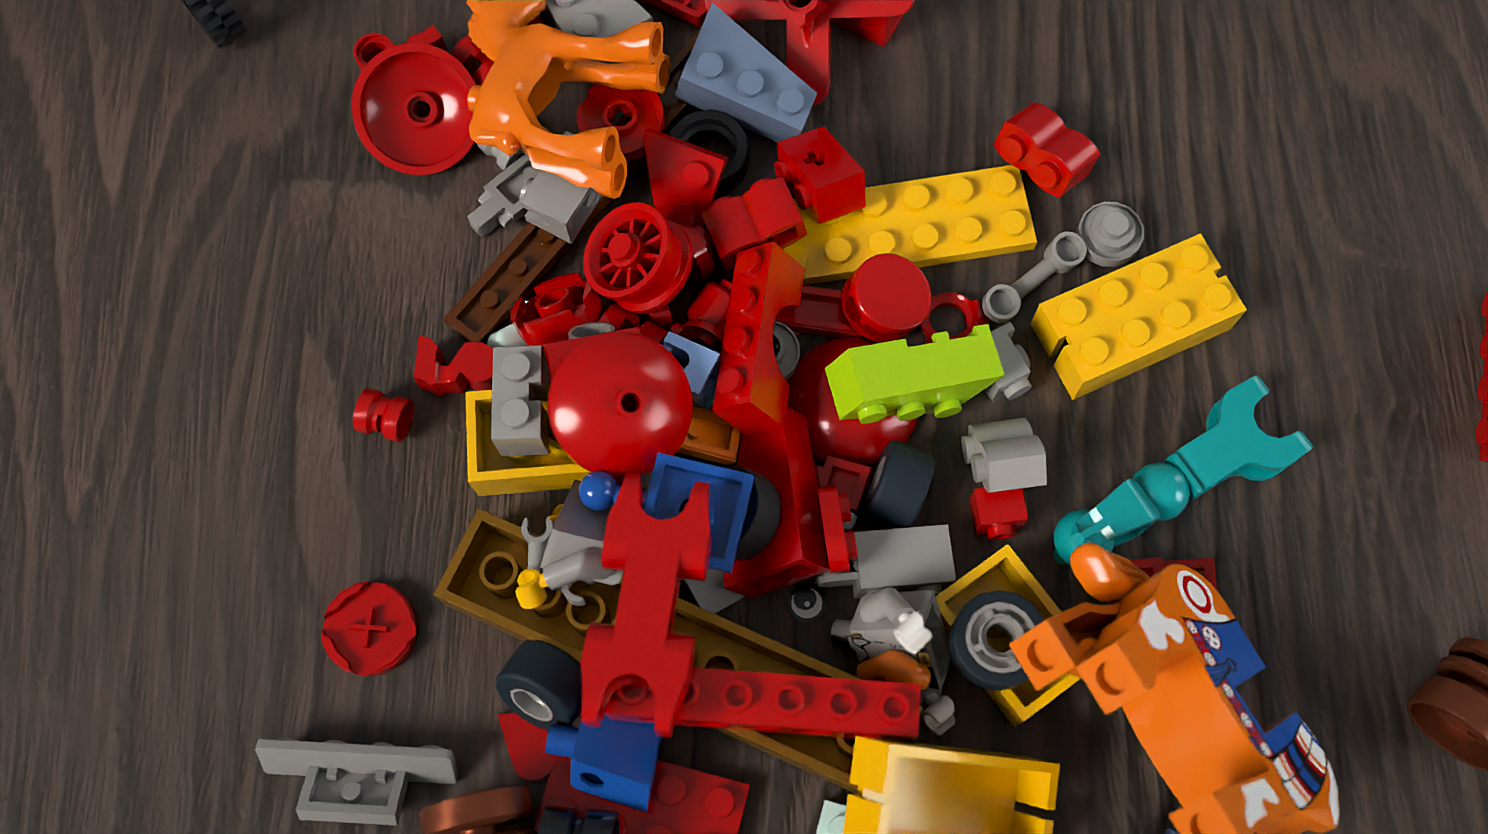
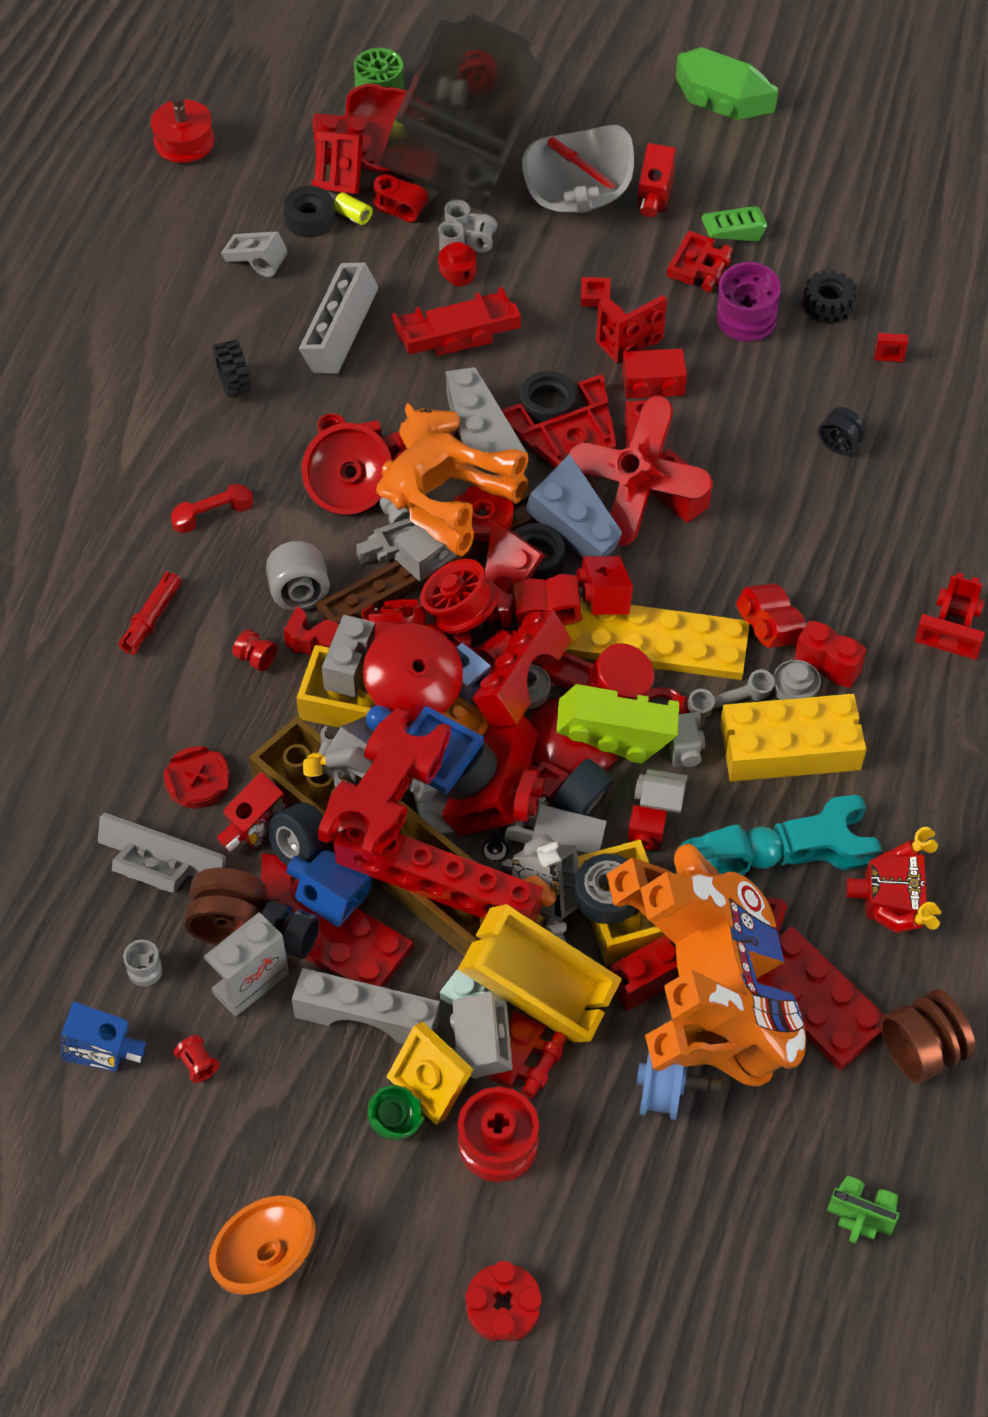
camera: 15 degrees right, 15 degrees down
(218, 412) = (144, 621): none -> red pin
(219, 240) = (237, 495): none -> red bar
(404, 288) = (297, 575): none -> light grey head
(474, 654) = (251, 814): none -> red torso
(1074, 732) = (646, 972): none -> red brick
(1144, 181) = (831, 654): none -> red brick
(1281, 51) = (961, 601): none -> red tile
(1334, 692) = (833, 1010): none -> red plate
(1350, 493) = (897, 886): none -> red torso

